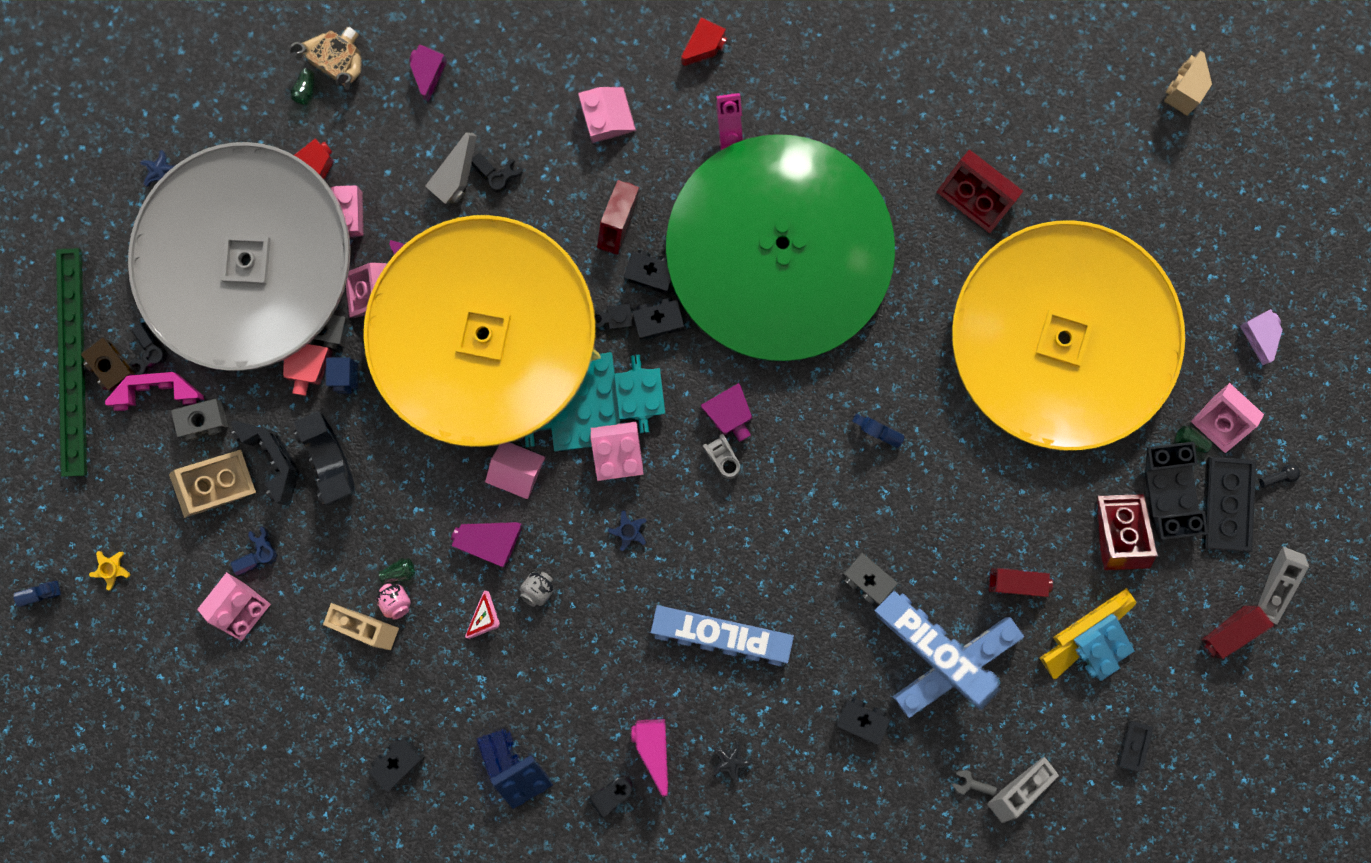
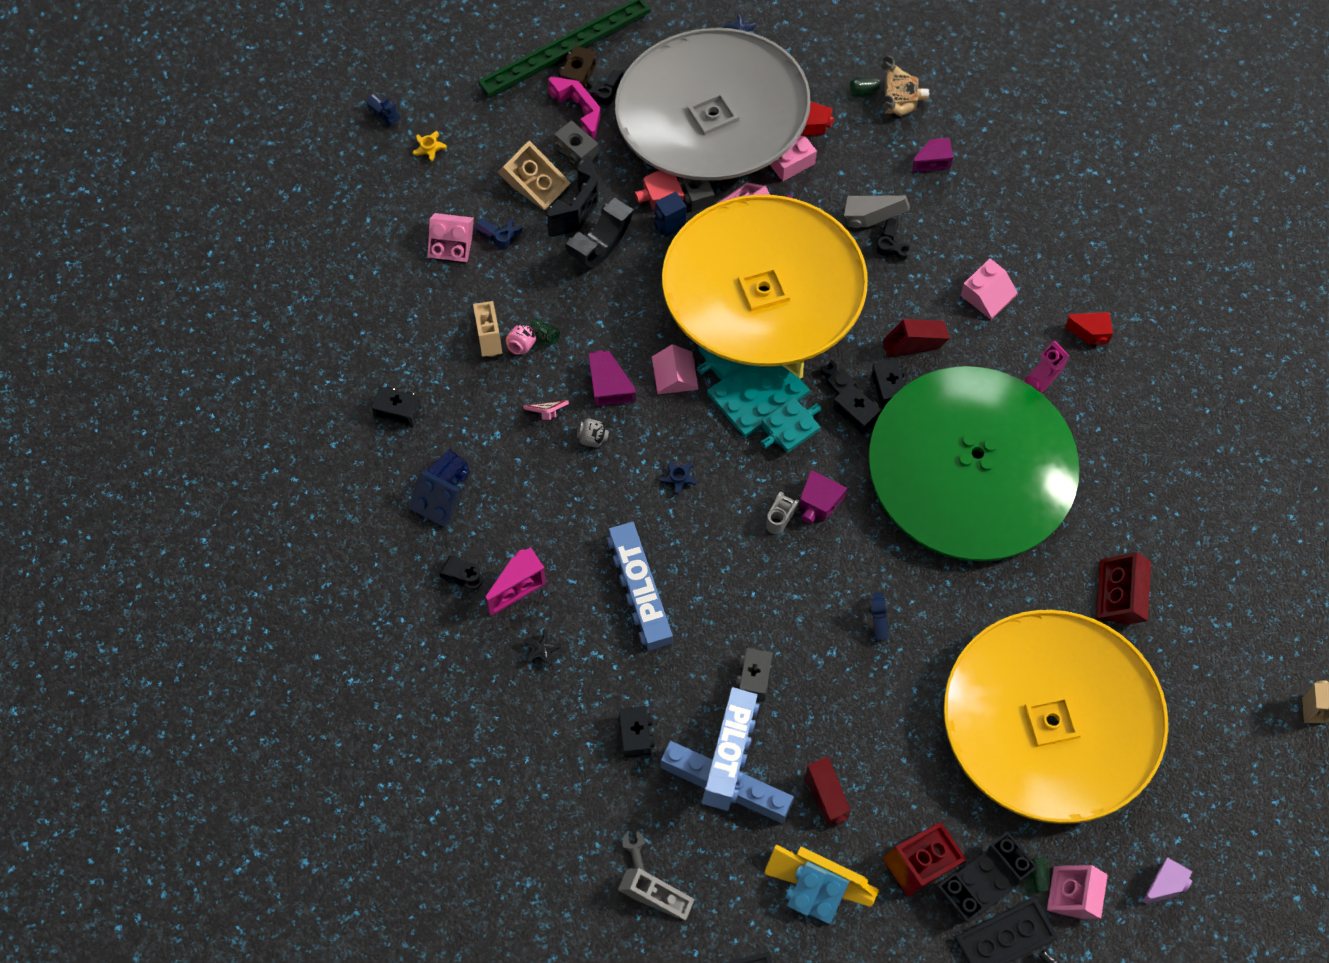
camera: 55 degrees right, 20 degrees down
(616, 451) = (735, 429): bright pink brick -> none

